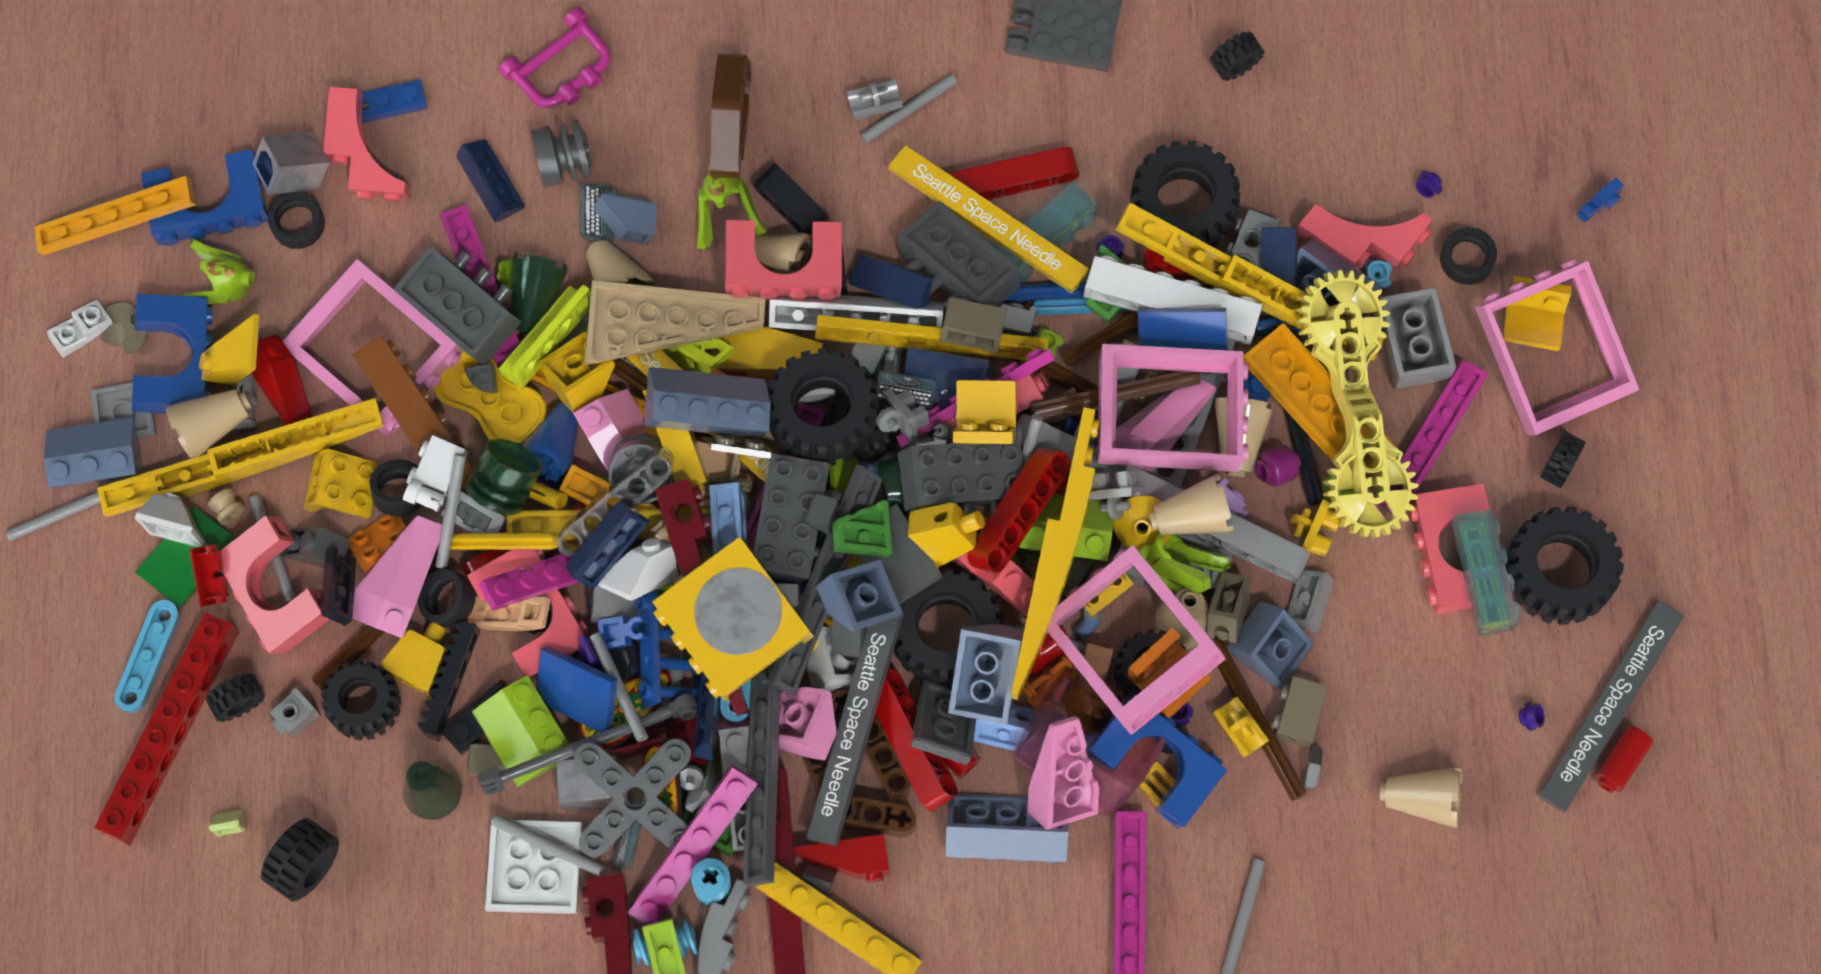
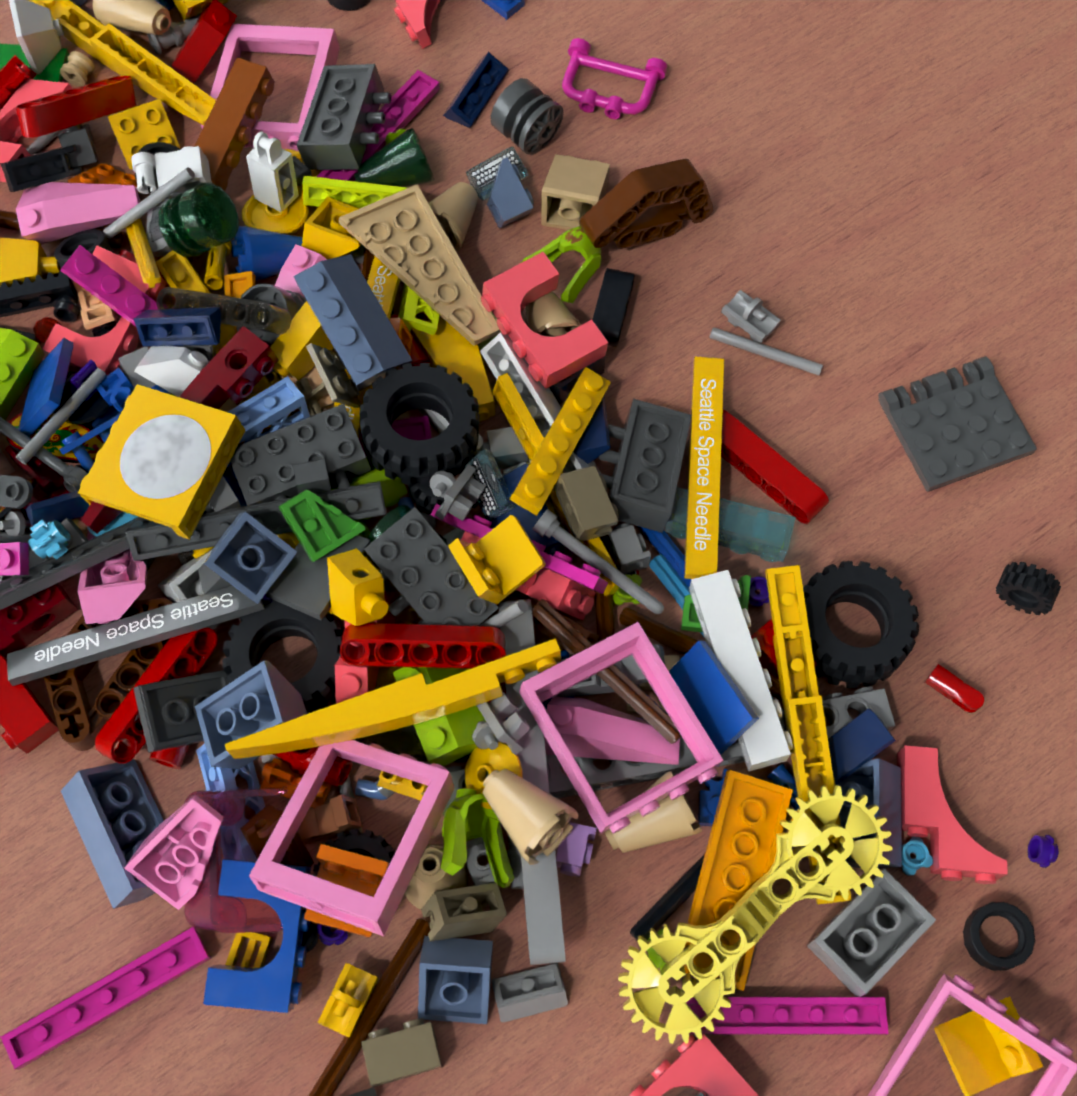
camera: 55 degrees right, 5 degrees down
(291, 522) = (76, 106): none -> red beam
(488, 394) = (272, 173): none -> white brick
(488, 643) = (66, 309): none -> black plate
(502, 668) = (43, 328): none -> clear red plate
(662, 161) = (572, 190): none -> tan slope
(737, 747) = (49, 539): none -> medium azure gear
(902, 310) = (560, 441): none -> yellow plate
(942, 435) = (449, 534): dark grey arm -> none
(973, 362) = (549, 526): none -> light grey piece
(1276, 161) = (955, 689): none -> red bar
(1277, 465) = (646, 874): magenta head -> none
(1314, 542) = (590, 956): yellow hips -> none

